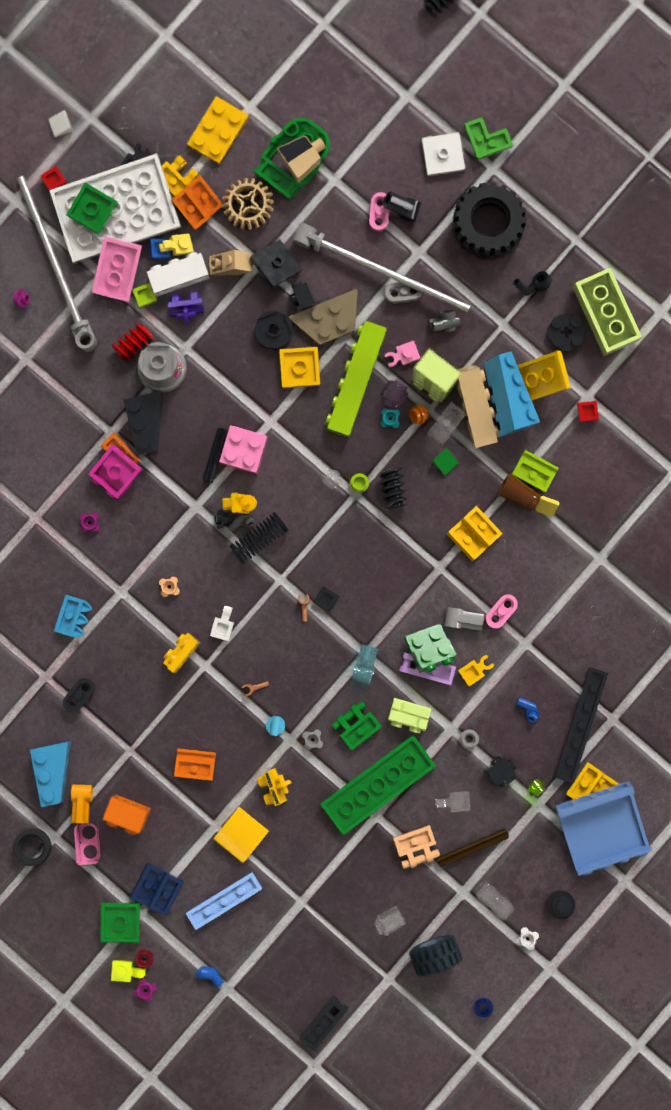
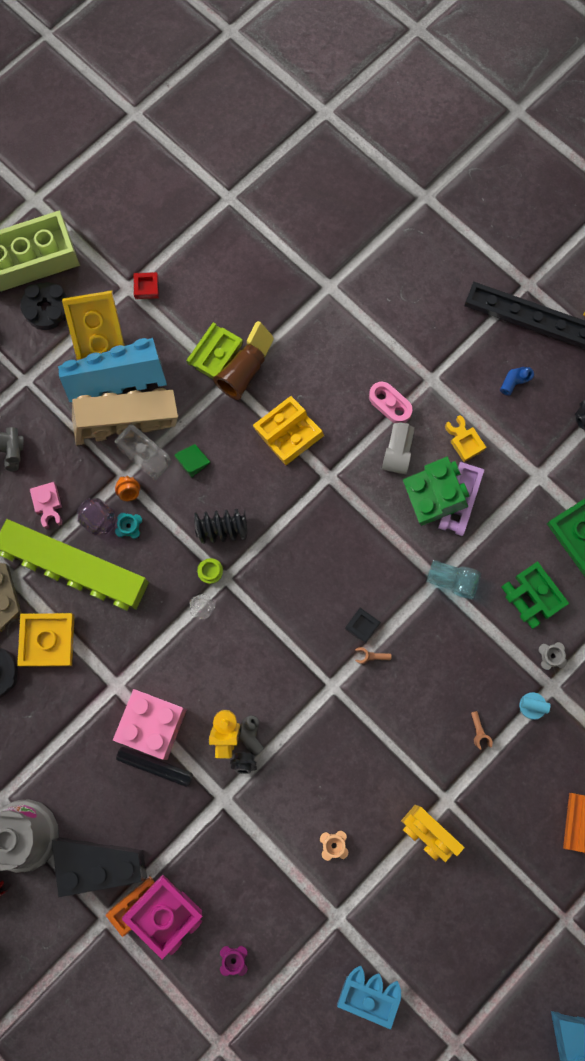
camera: 85 degrees left, 10 degrees down
(79, 695) = (484, 995): black plate -> none
(222, 626) = (394, 770): white plate -> none
(276, 519) = (245, 686): black piece -> none
(409, 714) = (522, 525): yellowish green brick -> none
(435, 376) = (76, 453): yellowish green brick -> none
(464, 734) = (556, 447): light grey plate -> none

